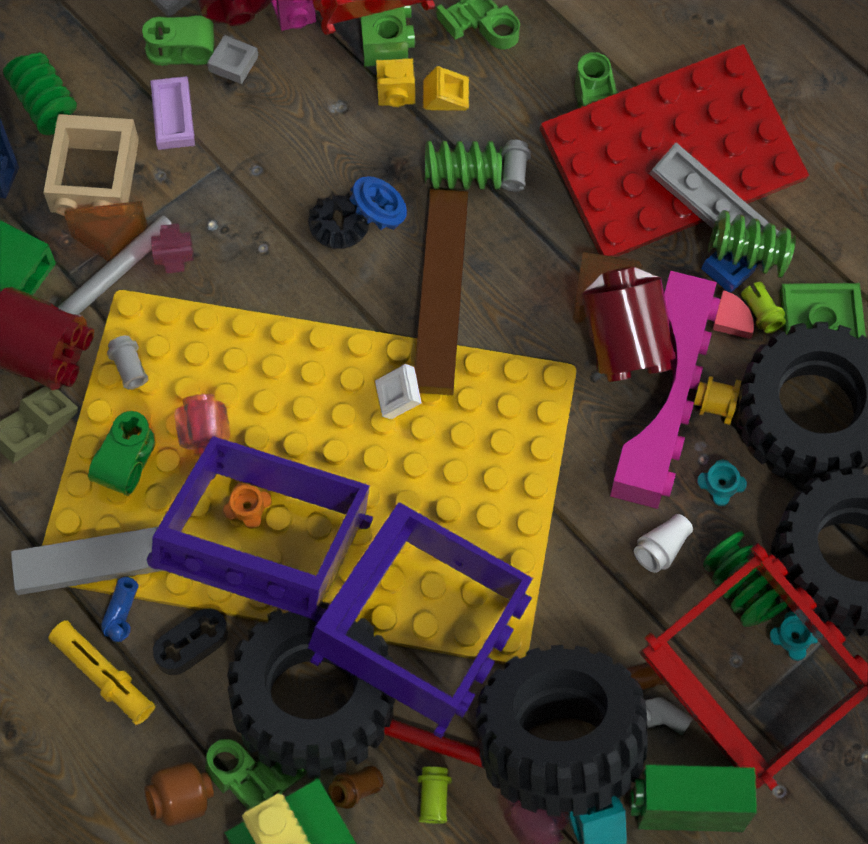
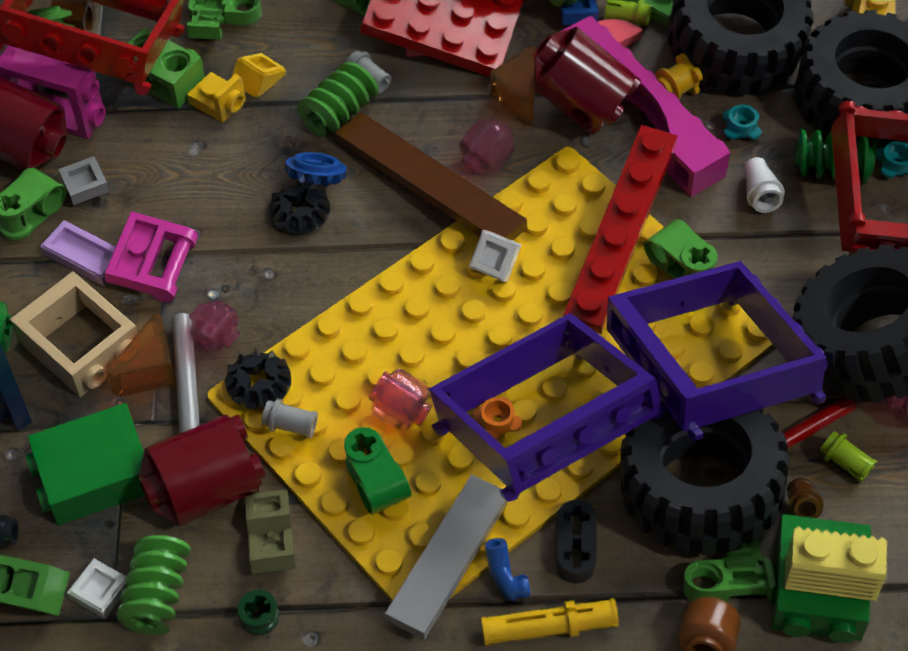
camera: 50 degrees left, 10 degrees down
(163, 321) = (274, 387): none -> black gear
(196, 147) = (138, 253): none -> dark pink plate
(512, 306) = (487, 146): none -> clear pink head
(512, 462) = (621, 226): none -> red plate
(520, 528) = (680, 250): none -> bright green piece

